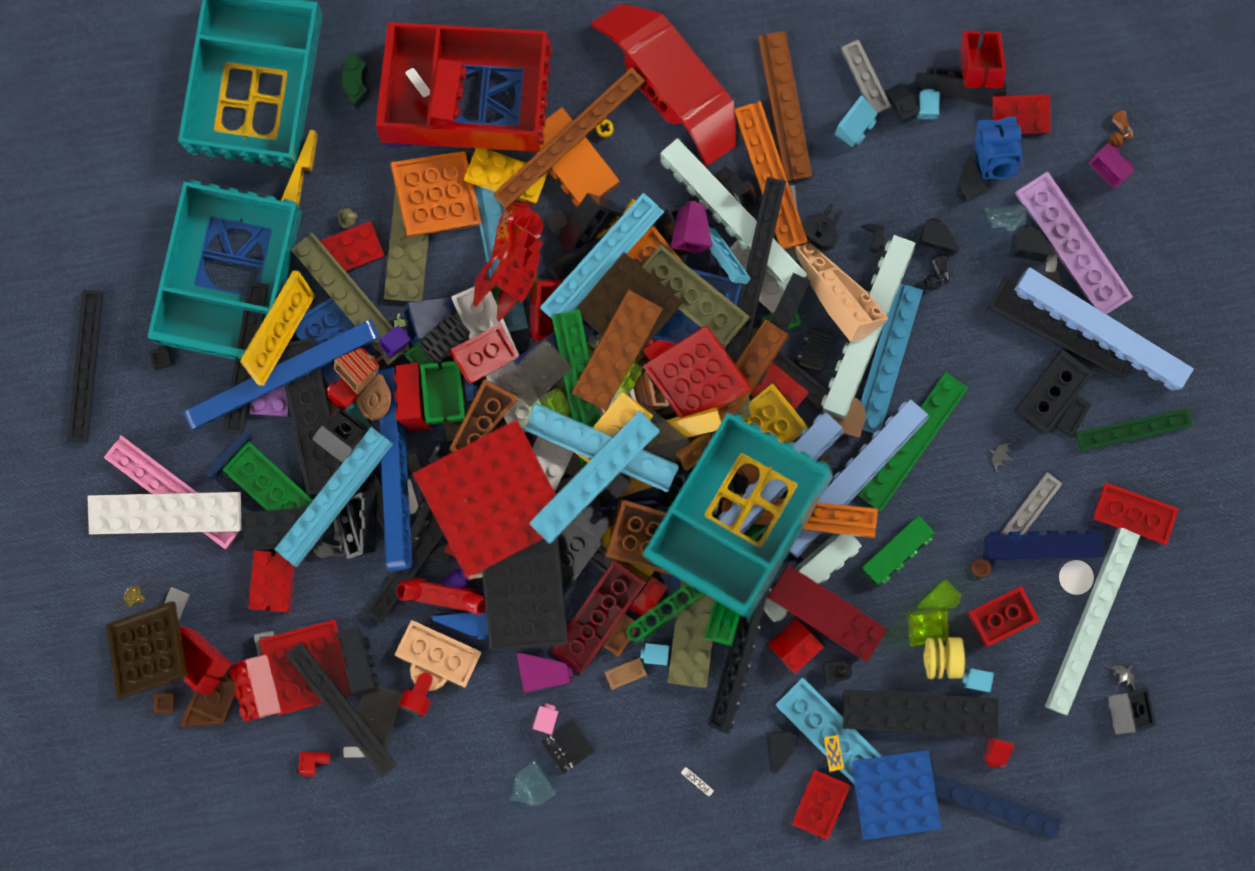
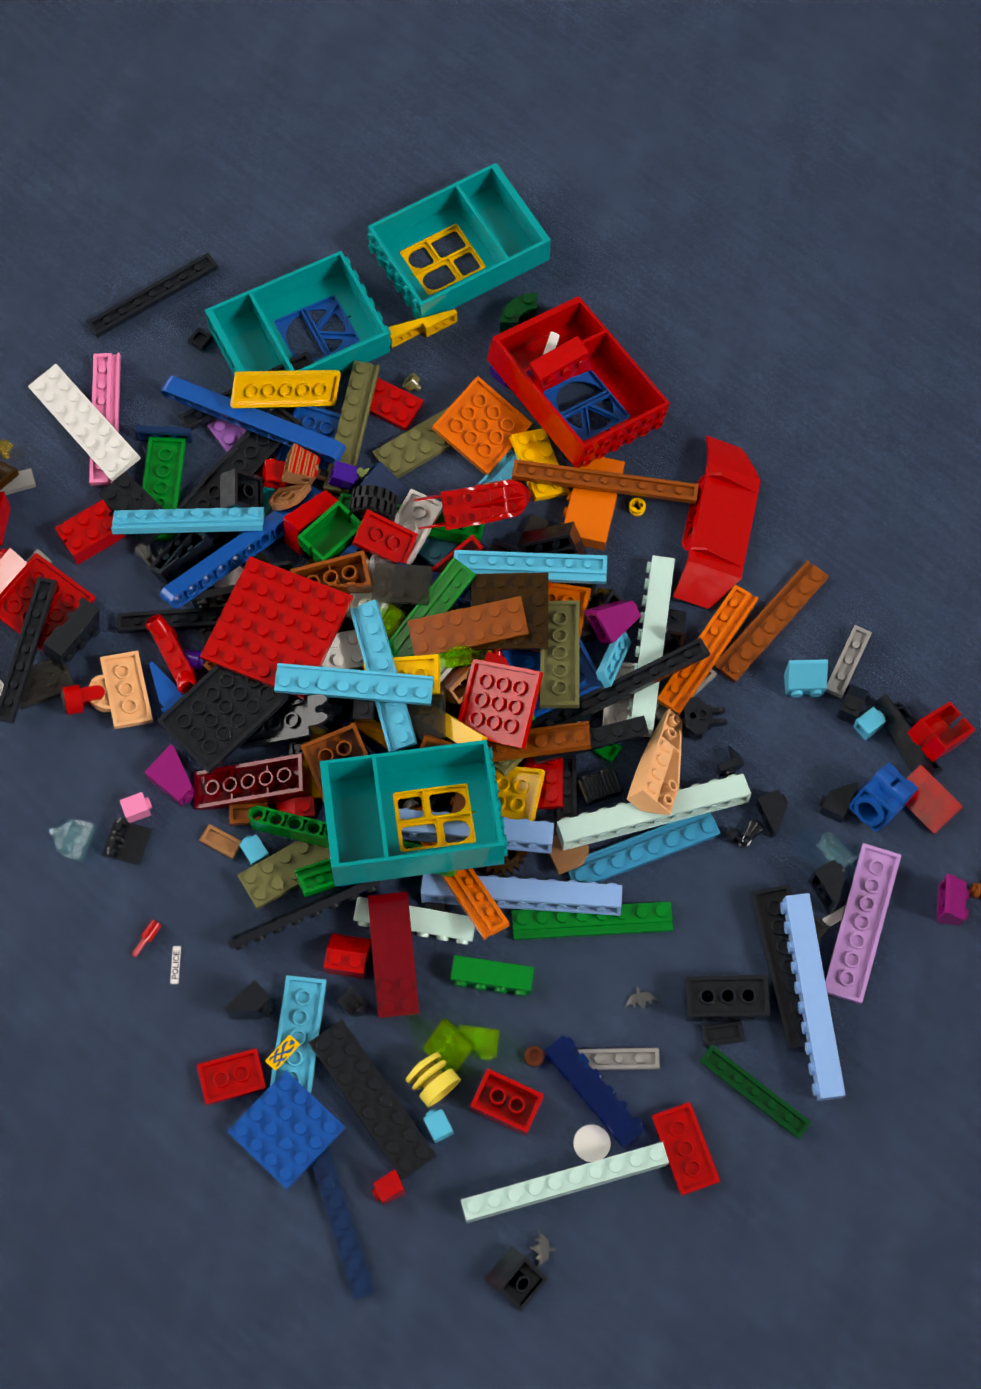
camera: 50 degrees right, 15 degrees down
(658, 787) = (147, 936): none -> red axle

